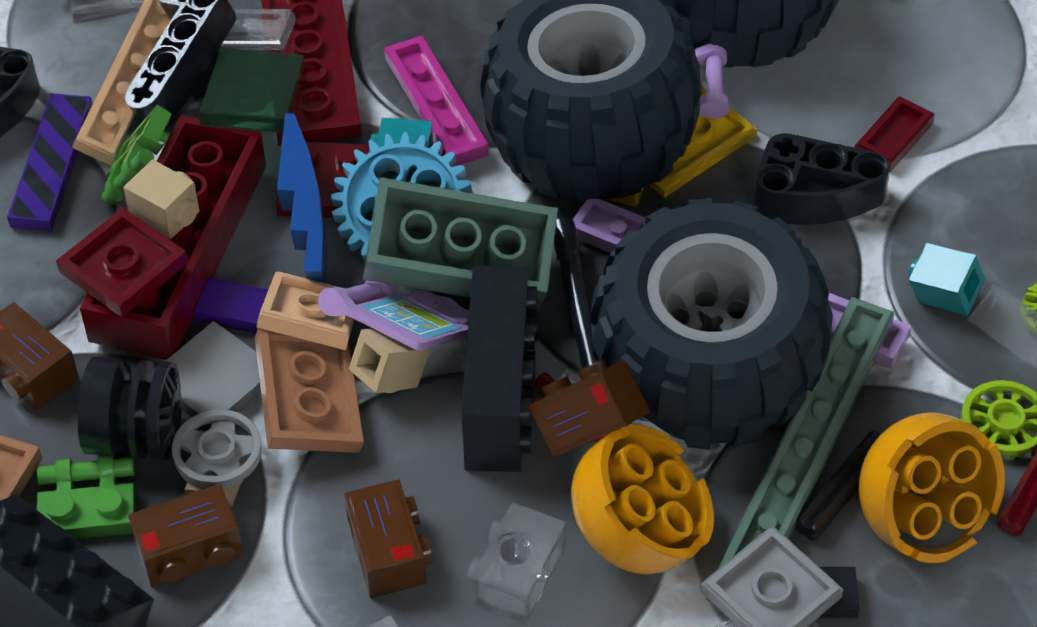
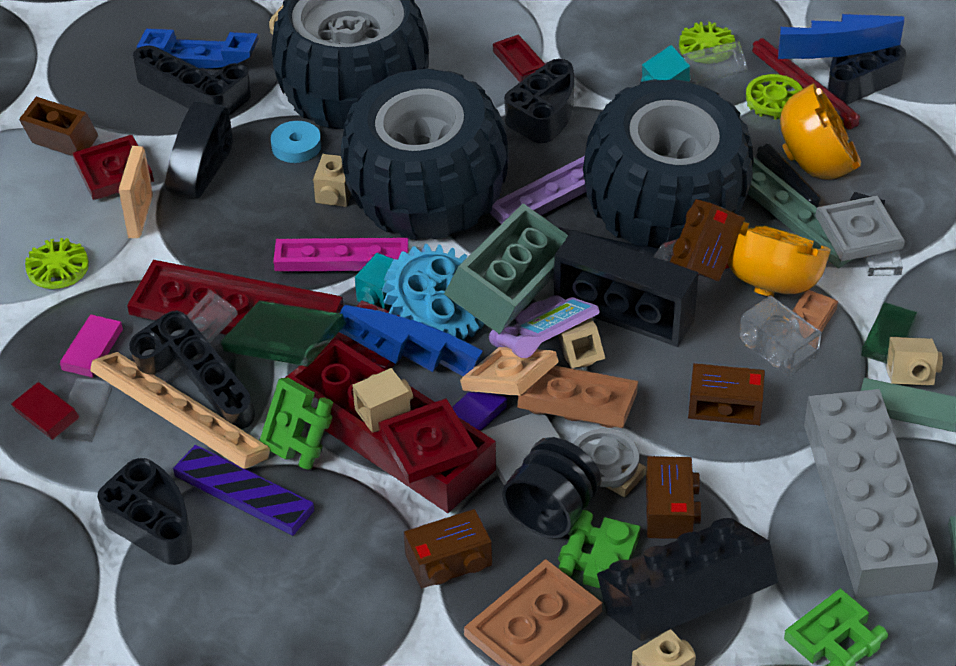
camera: 65 degrees left, 5 degrees down
(589, 593) = (816, 309): none -> nougat tile

